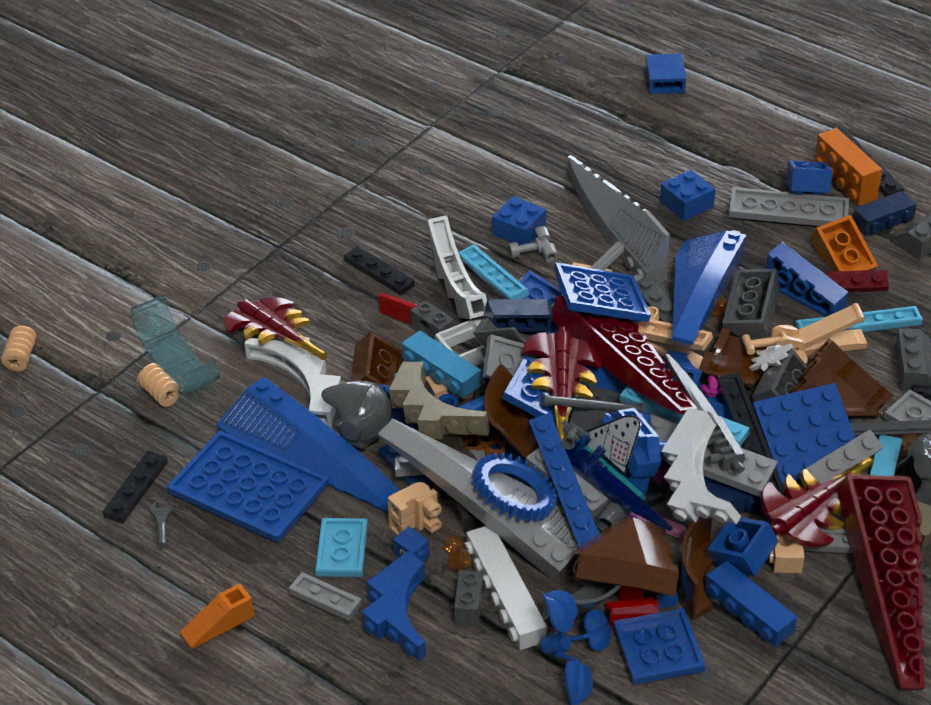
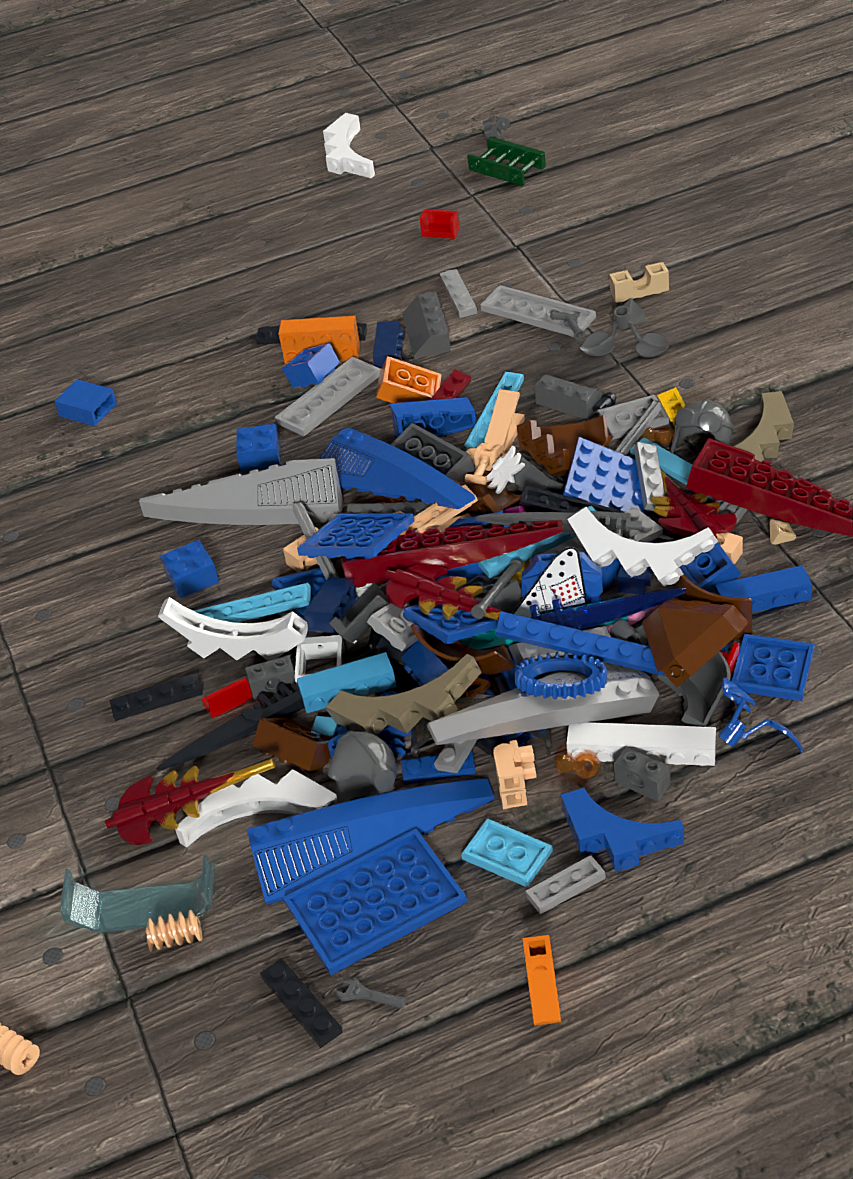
camera: 55 degrees left, 0 degrees up
(363, 325) = (240, 726): none -> black piece
(413, 542) = (547, 795): blue brick -> none
(541, 245) = (230, 569): light grey bar -> none
(573, 433) = (542, 614): dark grey piece -> none
(848, 590) = (780, 532): none -> tan slope

